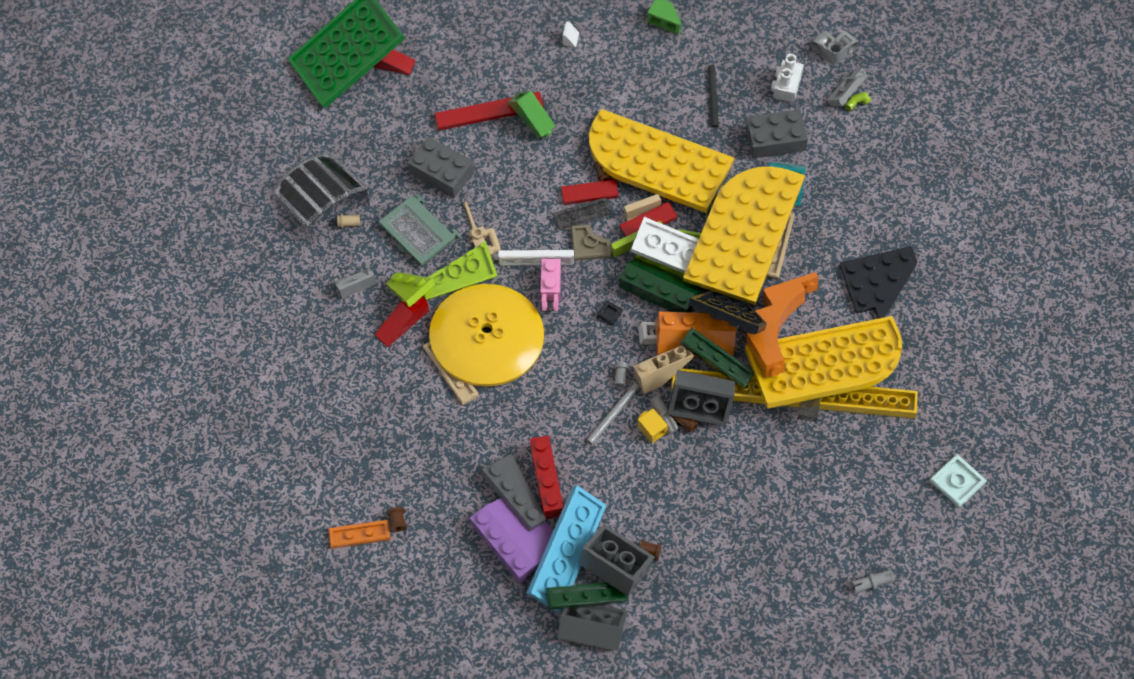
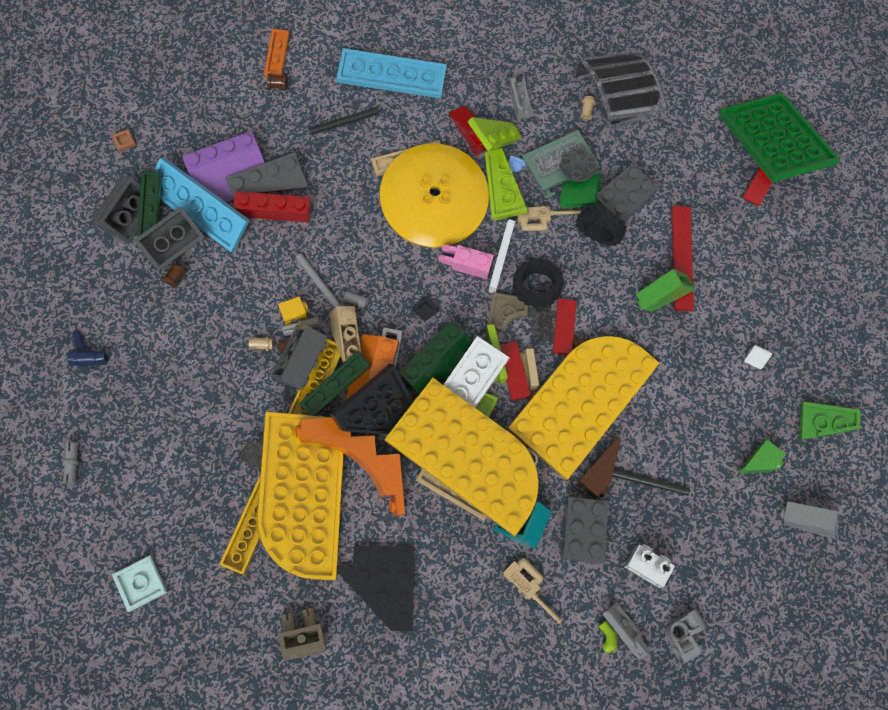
camera: 95 degrees right, 10 degrees up
(356, 411) = (391, 73): none -> medium azure plate
(422, 209) = (578, 165): none -> dark grey dish
(425, 442) = (343, 121): none -> pearl dark grey bar
(429, 269) = (516, 164): none -> light blue tile
(448, 202) = (580, 193): none -> green slope
(484, 174) = (592, 215): none -> black tyre
(510, 657) = (124, 140): none -> nougat tile
(548, 204) = (540, 267): none -> black tyre
(692, 442) = (261, 343): none -> tan pin
(718, 132) = (600, 474): none -> reddish brown slope
(764, 608) = (84, 357): none -> dark blue piece
(840, 168) = (528, 588): none -> tan piece
(952, 320) = (303, 641): none -> dark tan brick

